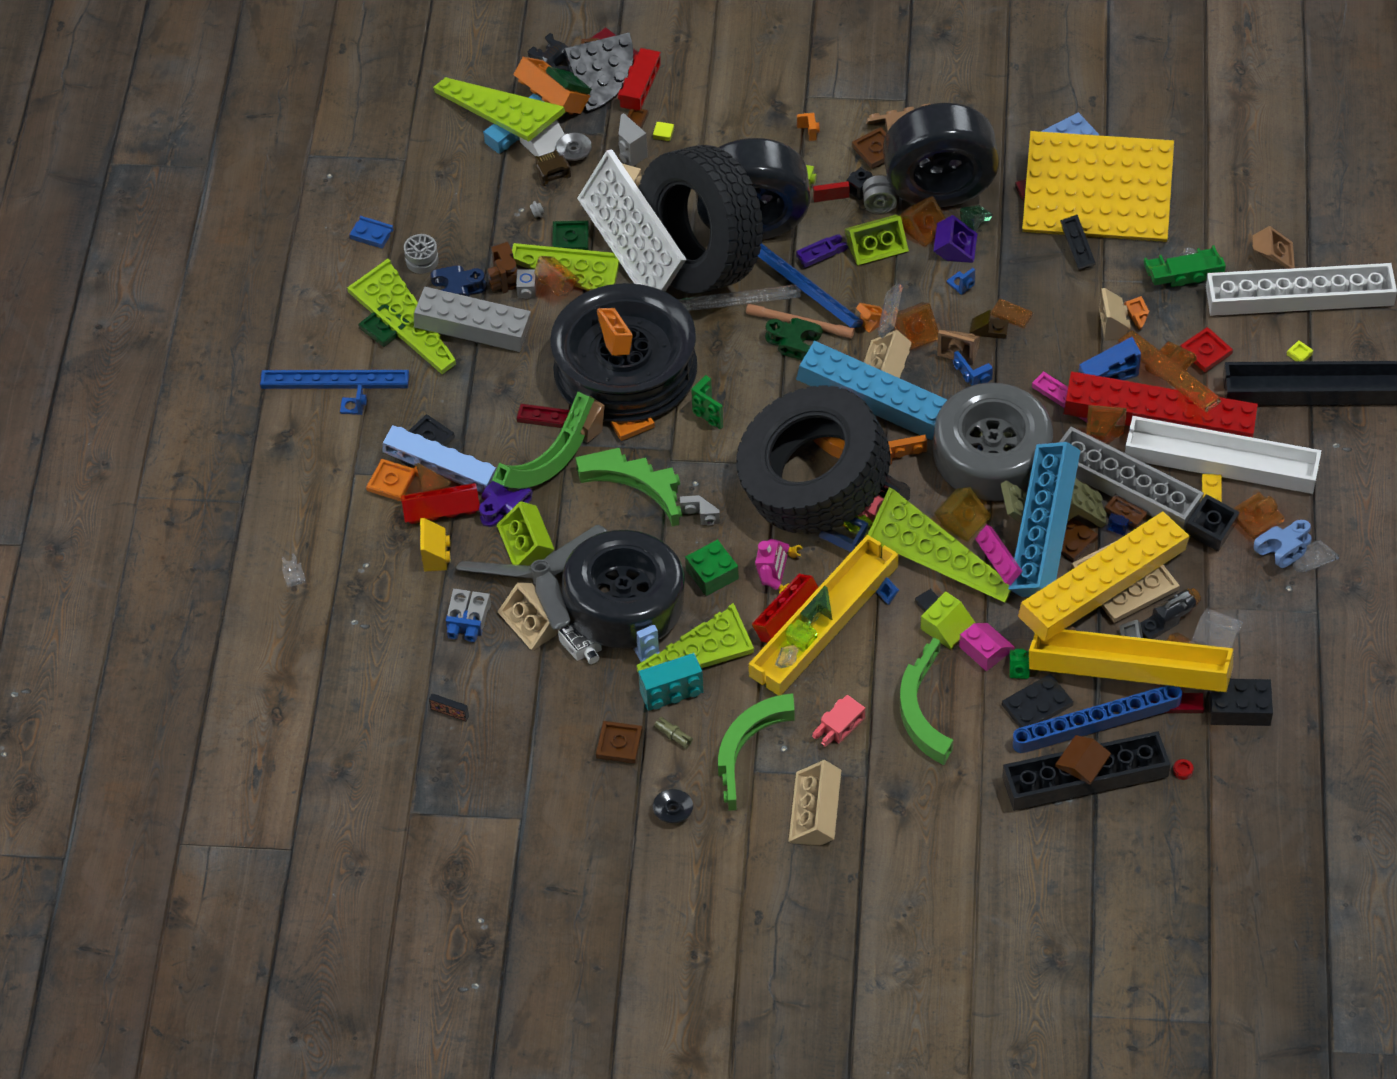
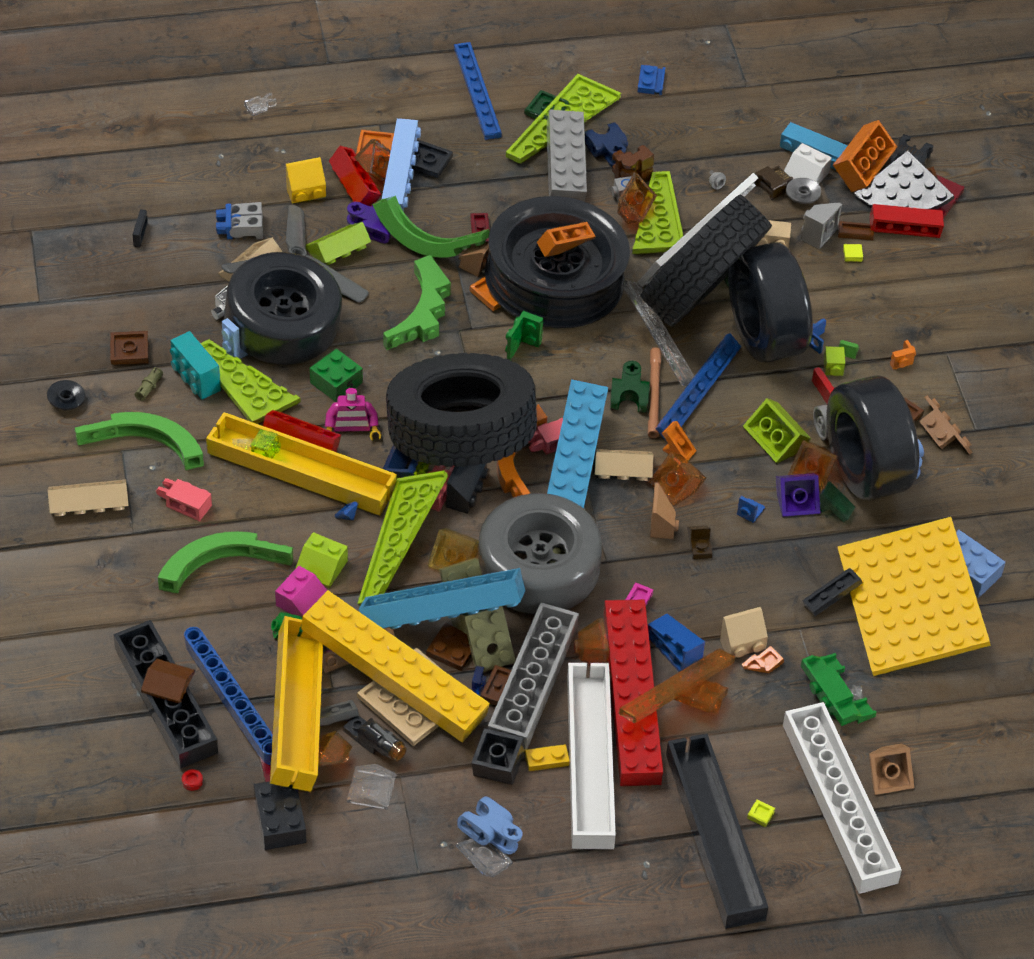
camera: 70 degrees right, 5 degrees down
(360, 401) = (453, 106): blue bracket -> none
(421, 253) = (633, 112): light grey wheel -> none
(509, 111) = (820, 131): lime wing -> none
(568, 80) = (869, 160): dark green tile -> none
(571, 234) = (694, 209): dark green tile -> none
(696, 504) = (402, 357): light grey slope -> none
(818, 605) = (303, 453): clear green slope -> none
(821, 250) = (745, 390): dark purple hinge -> none
(890, 310) = (683, 450): clear tile -> none
(926, 599) = (348, 541): black tile -> none
(978, 376) = (629, 533): blue bracket -> none
(998, 555) = (398, 583): dark pink plate -> none
(1009, 311) = (725, 557): clear orange tile -> none
(1037, 702) = (244, 649): black plate -> none
(1207, 348) = (732, 725): red plate -> none
(1258, 515) = (525, 799): clear orange plate -> none

